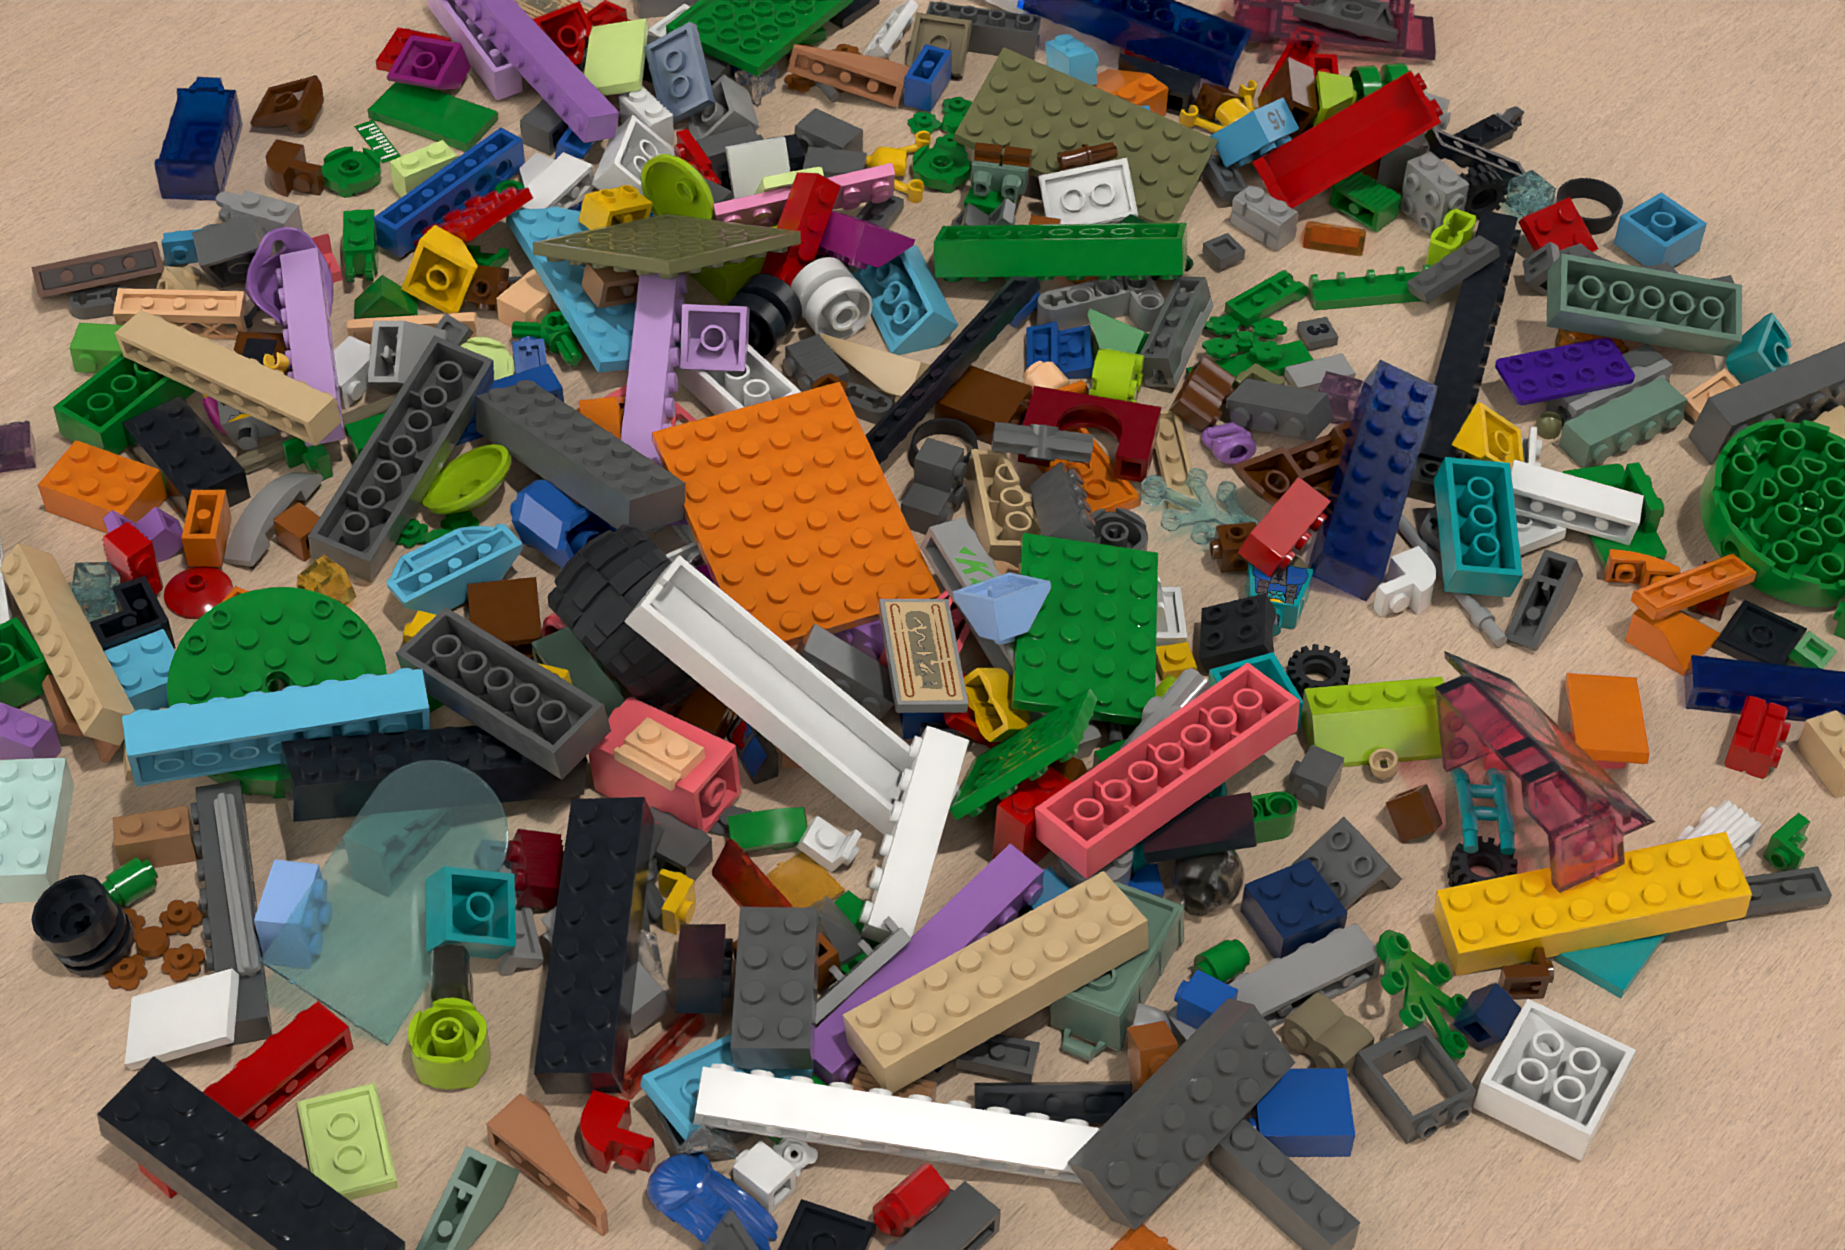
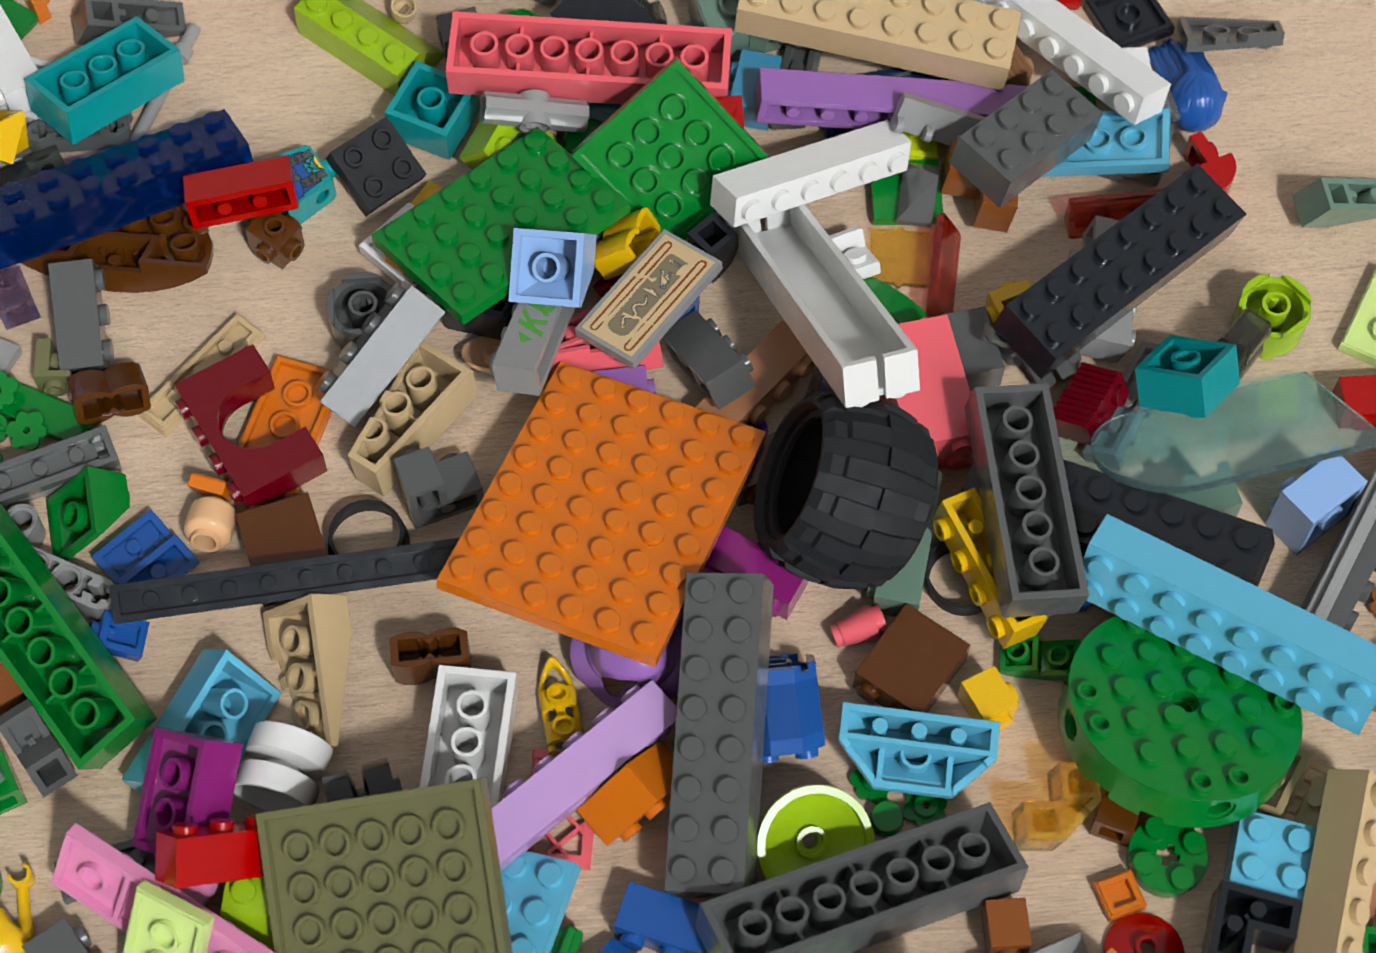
camera: 135 degrees left, 15 degrees up
(534, 1145) = (1266, 203): nougat slope -> none
(659, 753) = (943, 363): light nougat plate -> none
(702, 968) = (1048, 218): black brick -> none
(714, 337) = (451, 760): lavender slope -> none
(811, 360) = (374, 719): dark grey brick -> none
(868, 403) = (379, 649): dark grey beam -> none
(1042, 442) = (319, 420): dark grey piece -> none
(1117, 375) = (164, 457): lime brick -> none
(1155, 491) = (250, 295): clear light blue plant -> none
(1229, 443) = (146, 338): medium lavender piece -> none
(1317, 662) = (354, 88): black tyre -> none
(1409, 583) = (192, 102): white brick -> none

